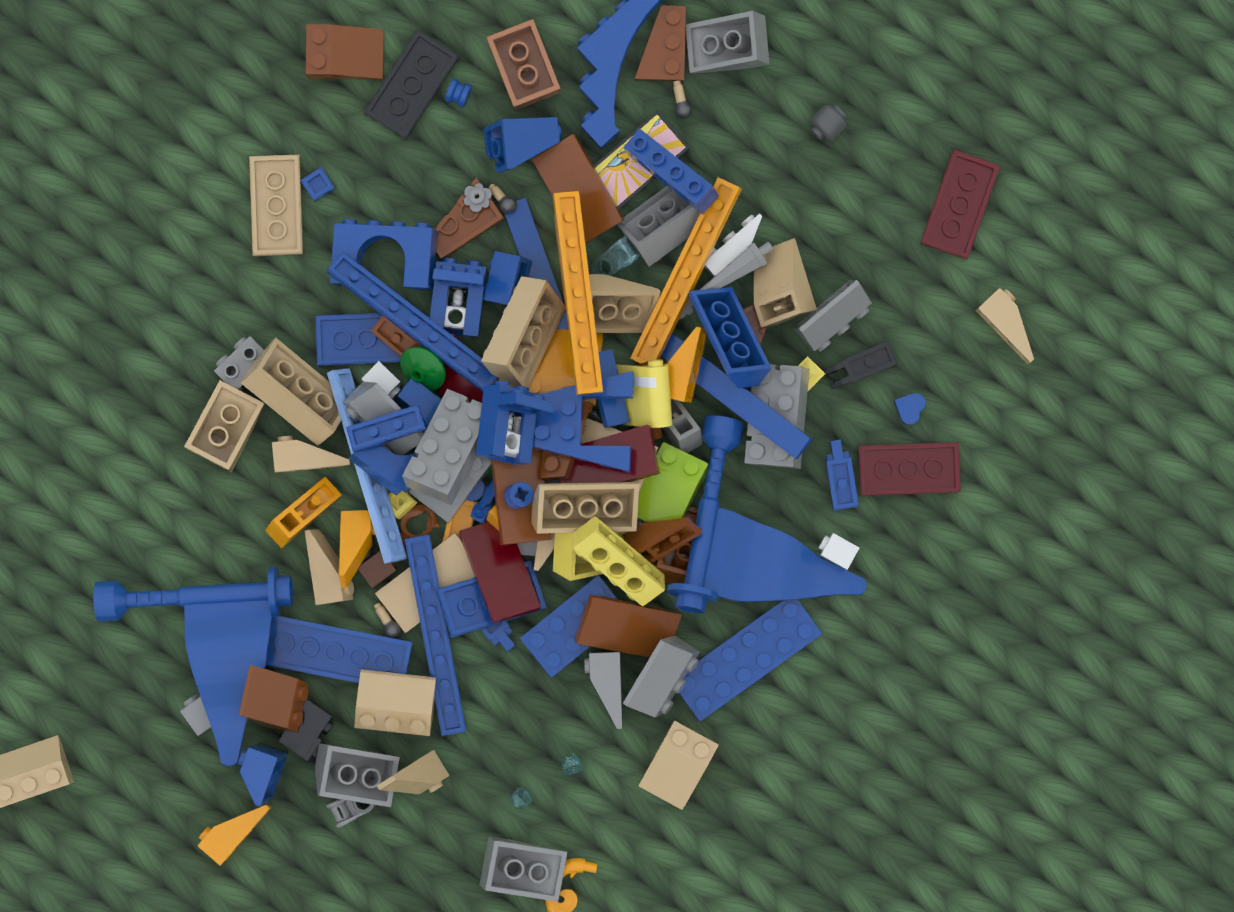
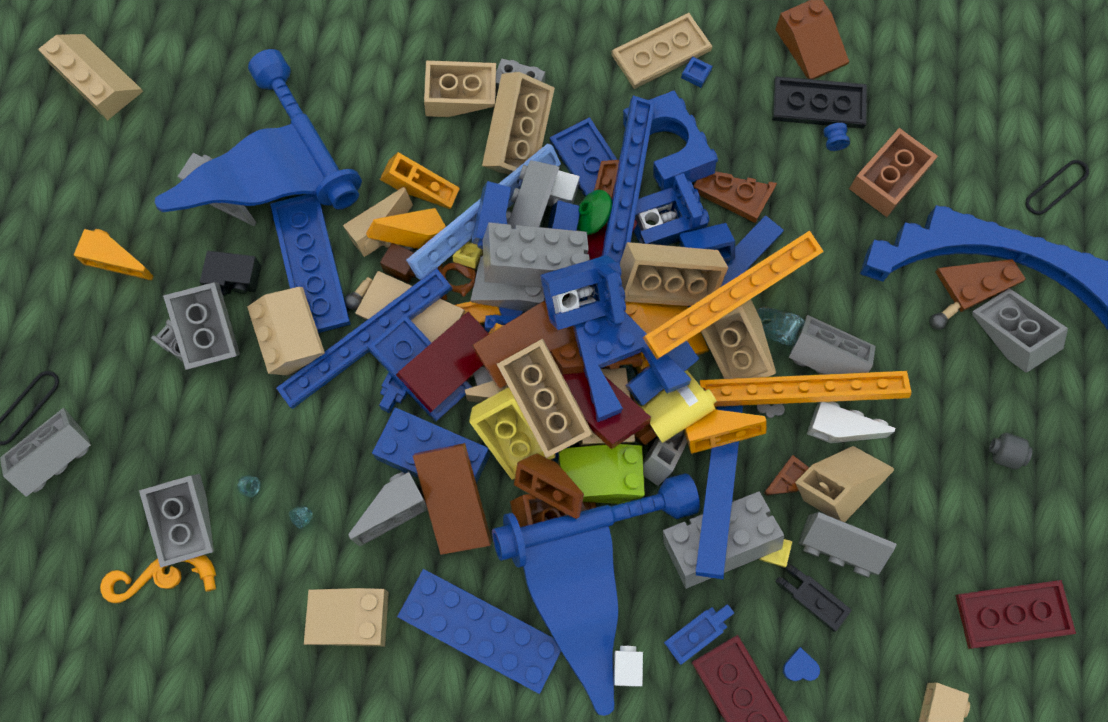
camera: 60 degrees right, 15 degrees down
(262, 771) = (165, 241): blue slope -> none
(273, 699) = (236, 218): dark orange slope -> none
(296, 455) = (463, 153): tan slope -> none
(386, 428) = (524, 195): blue tile -> none
(418, 776) = (223, 378): tan slope -> none
(483, 200) = (761, 190): light grey plant -> none
(506, 203) = (771, 215): flat silver piece -> none
(513, 497) = (520, 338): blue wheel -> none
(519, 140) = (832, 200): blue slope -> none
(569, 169) = (814, 281): dark orange tile -> none
(618, 561) = (509, 453): light yellow brick -> none
(626, 177) = (869, 305): tile -> none
(662, 677) = (420, 554): light grey slope -> none
(671, 171) = (886, 329): blue brick -> none
(731, 335) = (772, 455): blue slope -> none
(743, 264) = (843, 436): light grey bar -> none

